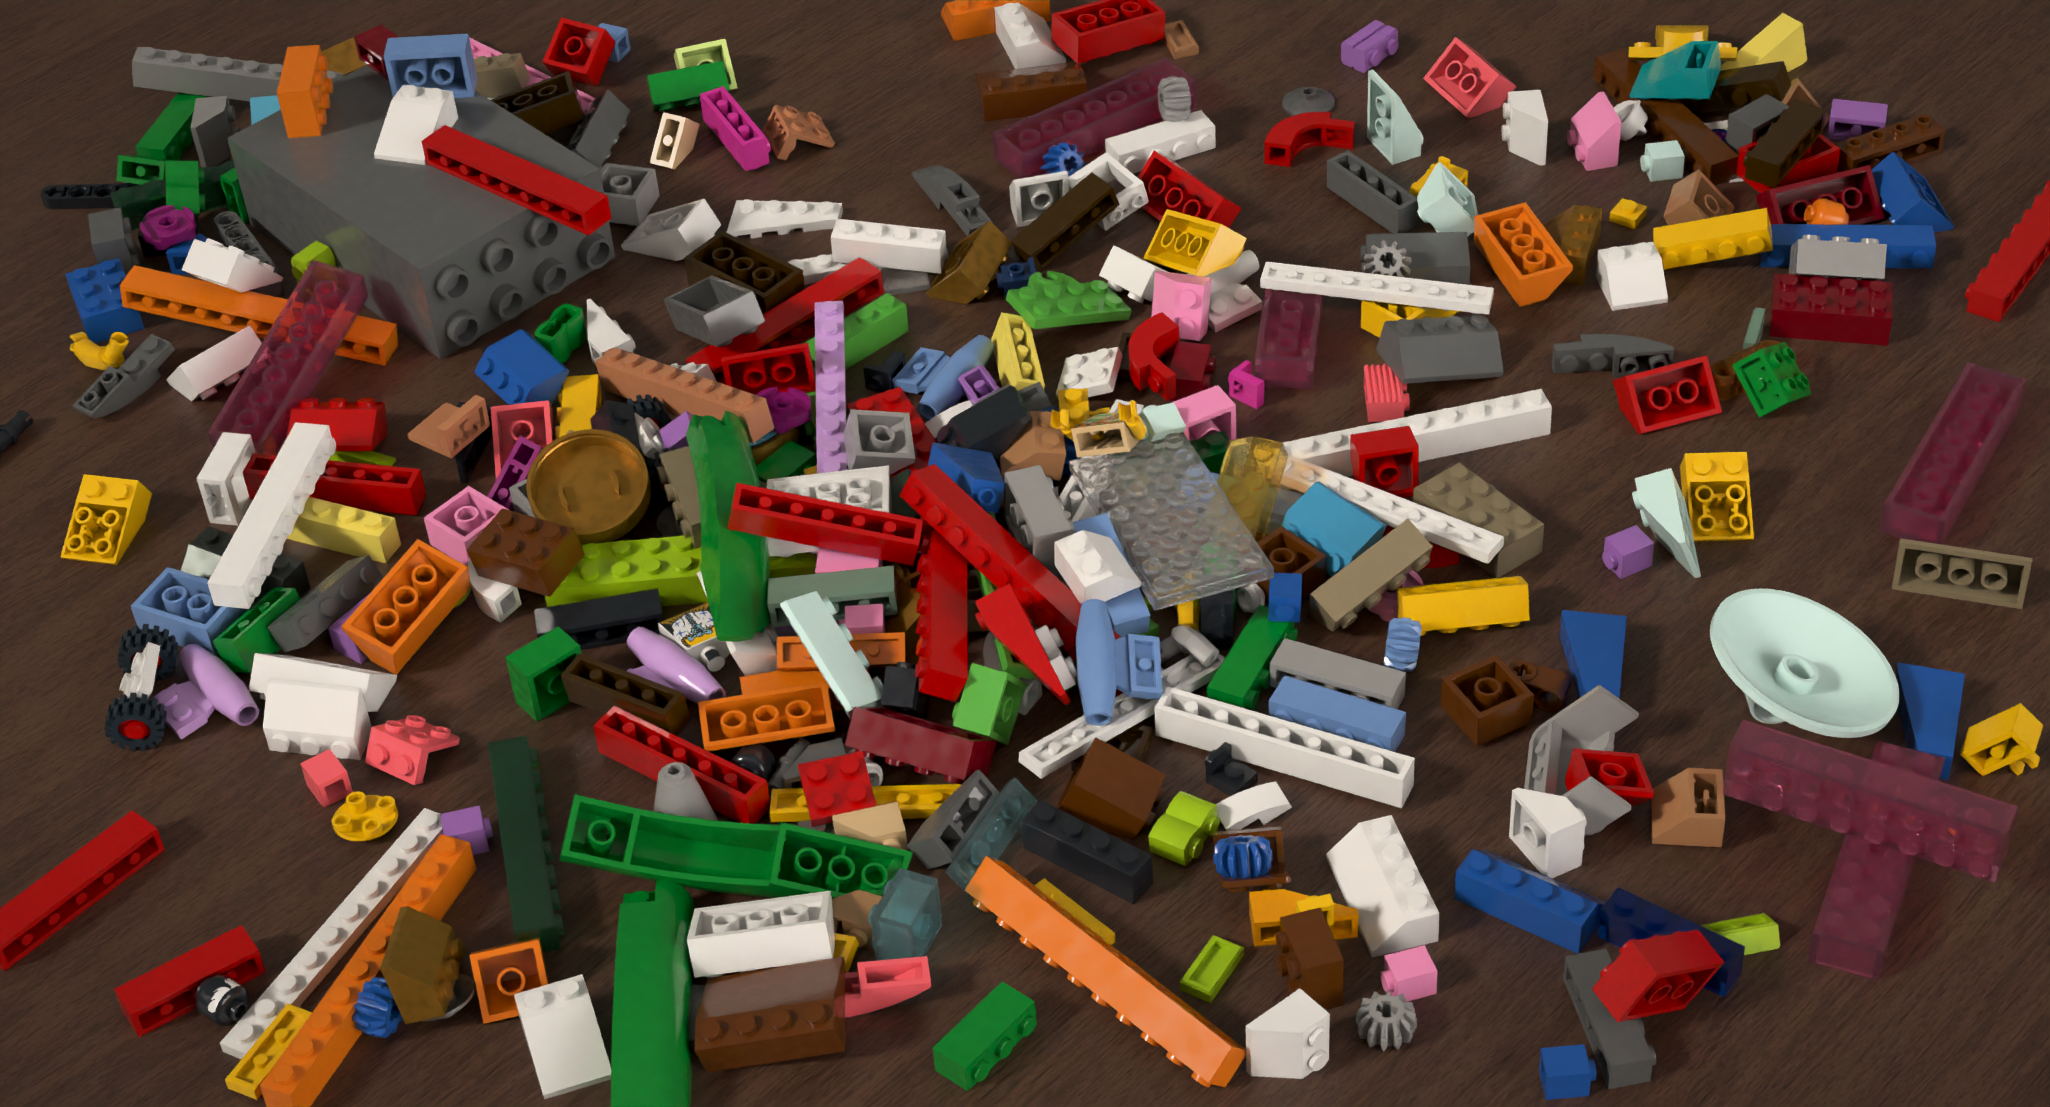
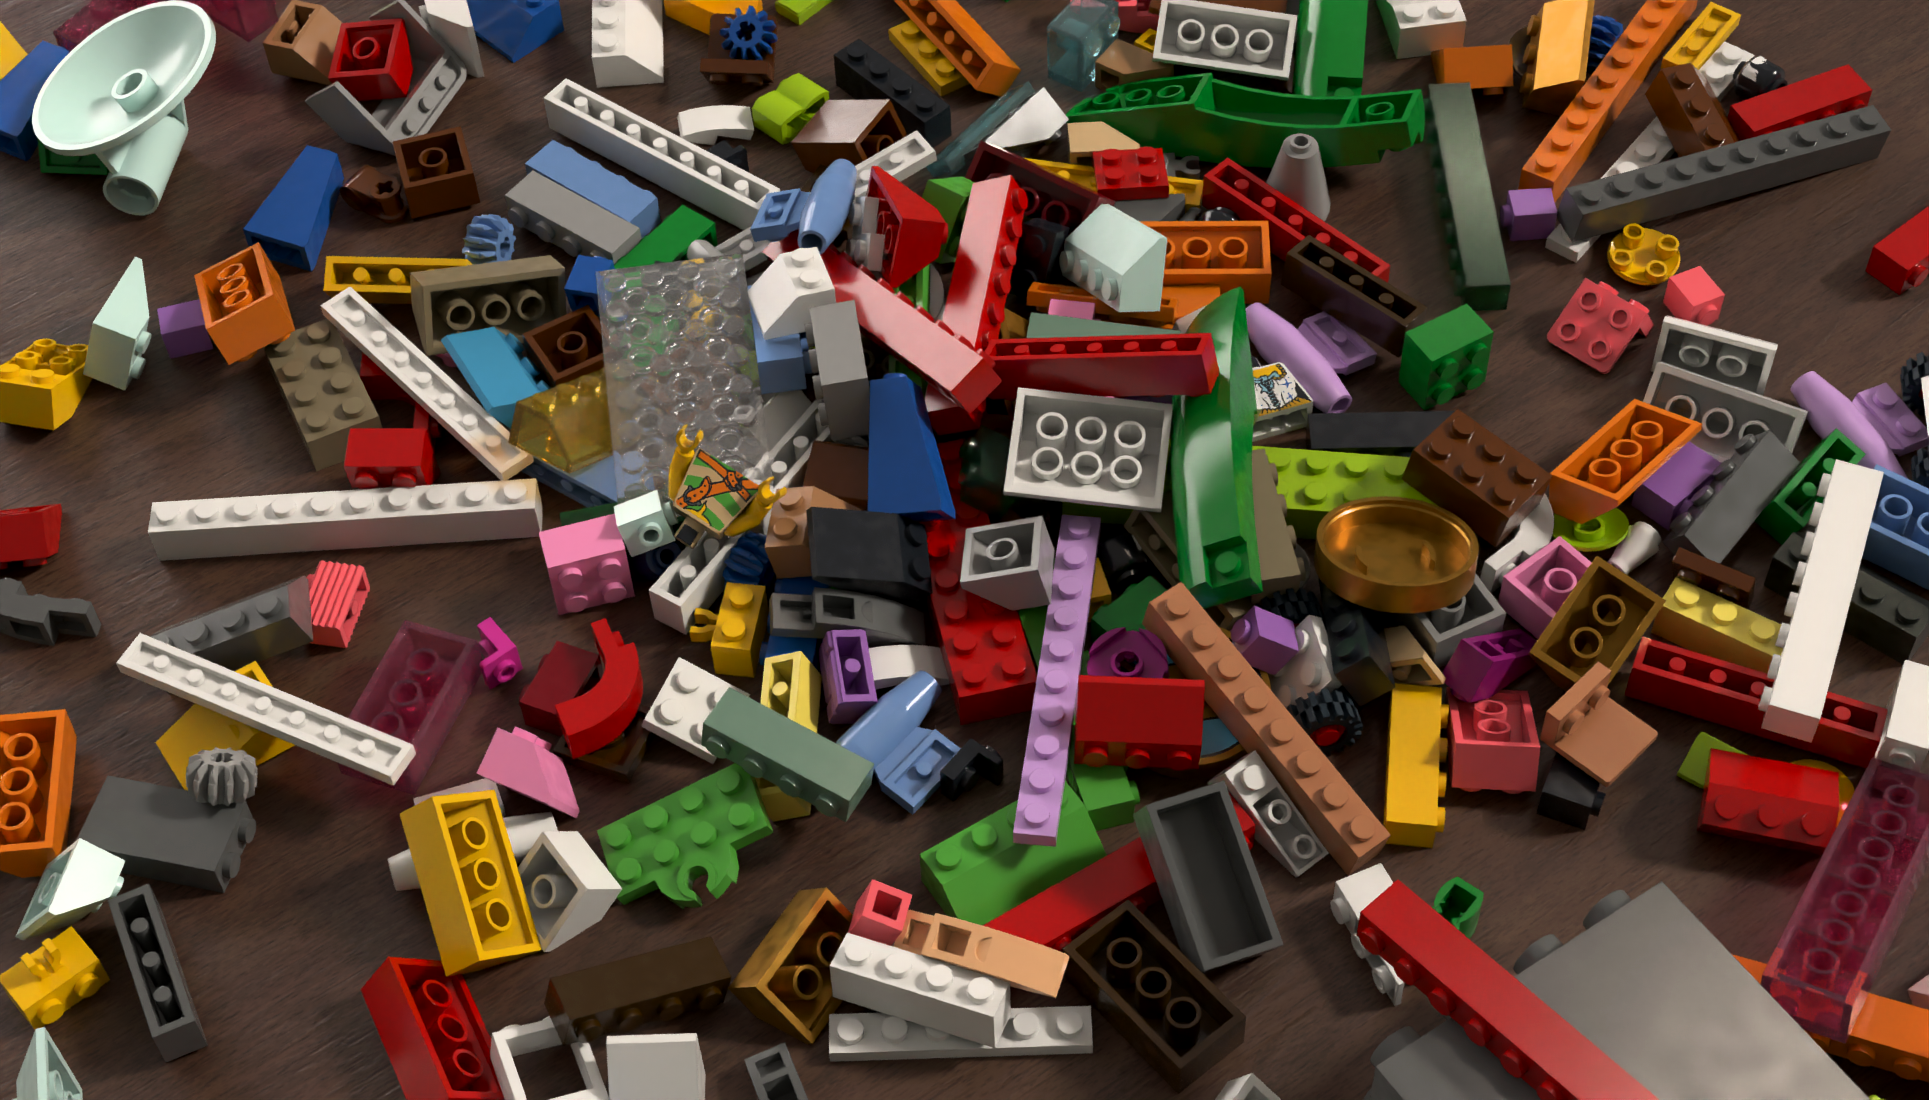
camera: 170 degrees left, 10 degrees up
(278, 878) = (1722, 173): none -> dark grey brick
(290, 931) = (1689, 110): none -> reddish brown slope
(347, 539) = (1714, 577): none -> reddish brown plate
(435, 485) = (1595, 625): none -> pearl gold slope
(521, 370) = (1502, 841): blue slope -> none
(845, 247) = (984, 951): none -> light nougat slope
(923, 267) = (880, 913): none -> coral brick
(1004, 311) = (787, 754): none -> sand green brick
(1015, 275) = (739, 922): dark blue brick -> none
(1574, 538) = (244, 304): none -> orange brick

